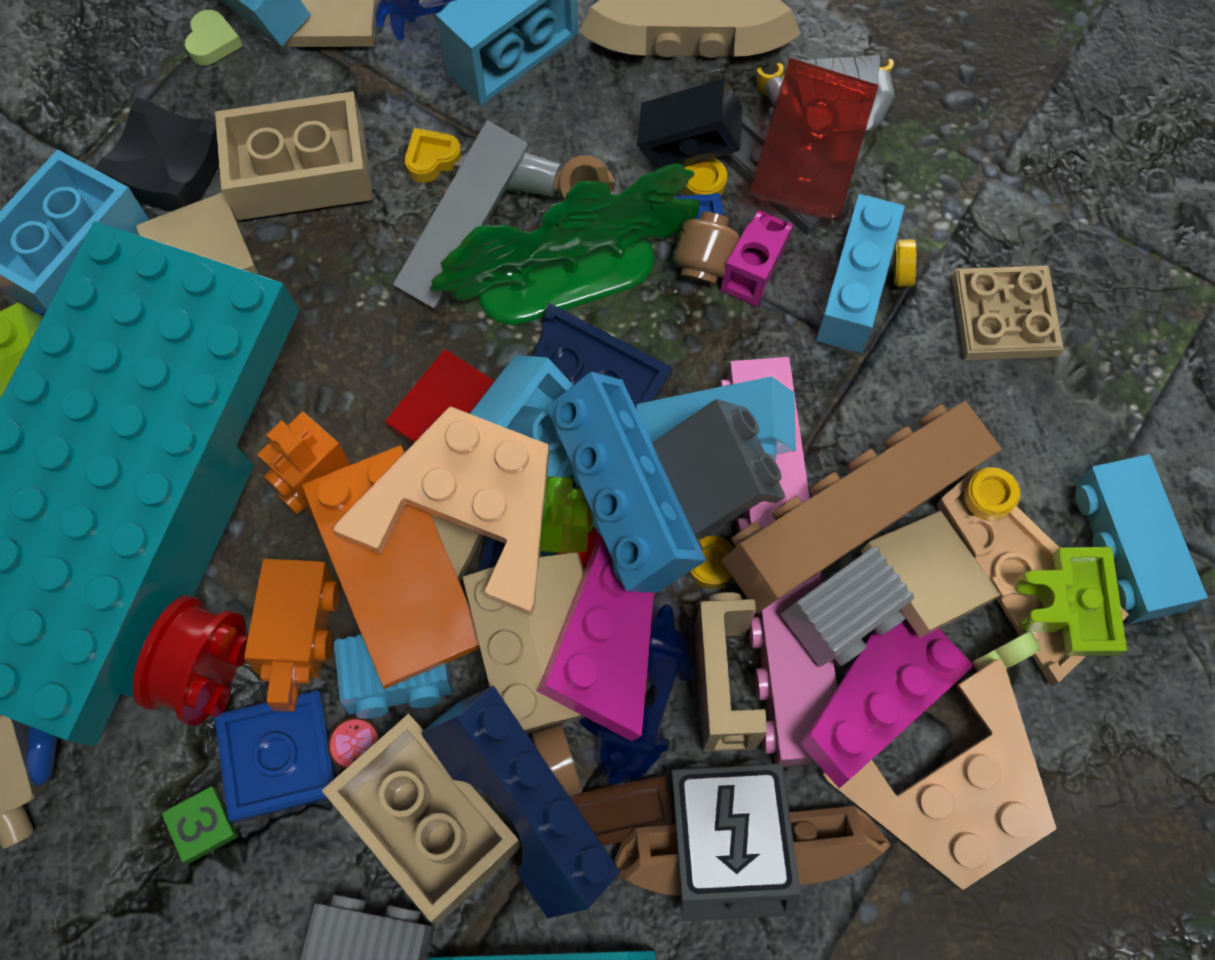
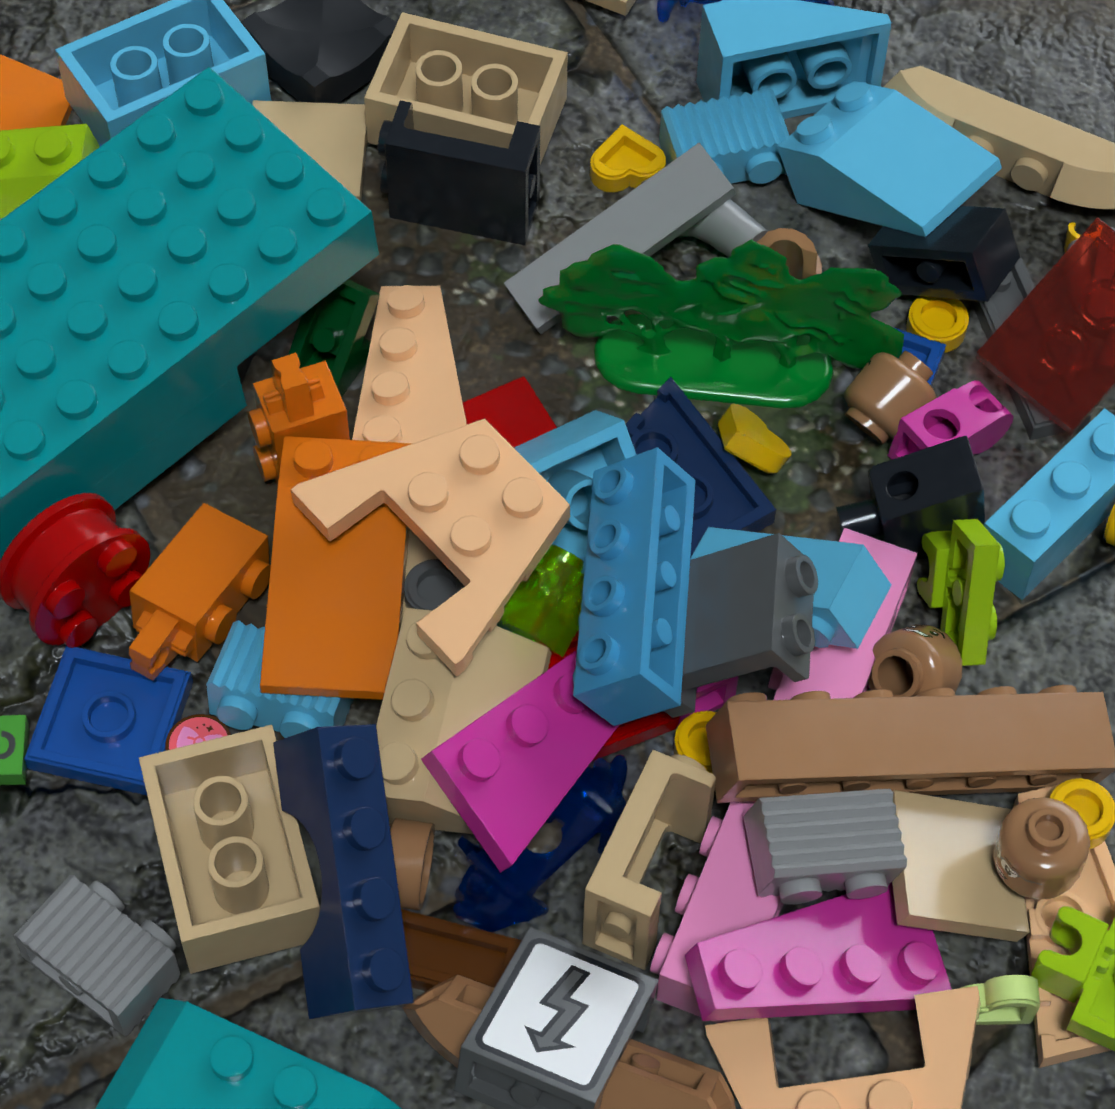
camera: 25 degrees right, 10 degrees down
(293, 384) = (336, 332): none -> dark green slope
(323, 222) = (461, 181): none -> black panel
(365, 389) = (409, 370): none -> light nougat wing
(468, 549) = (430, 585): none -> dark grey tile
(502, 97) = (734, 131): none -> medium azure brick
(616, 78) = (883, 161): none -> medium azure slope
(627, 324) = (751, 440): none -> yellow tile
(771, 316) = (918, 496): none -> black torso
(829, 440) = (915, 661): none -> medium nougat head
(833, 360) = (962, 582): none -> lime plate
(989, 535) = (1038, 855): none -> medium nougat head

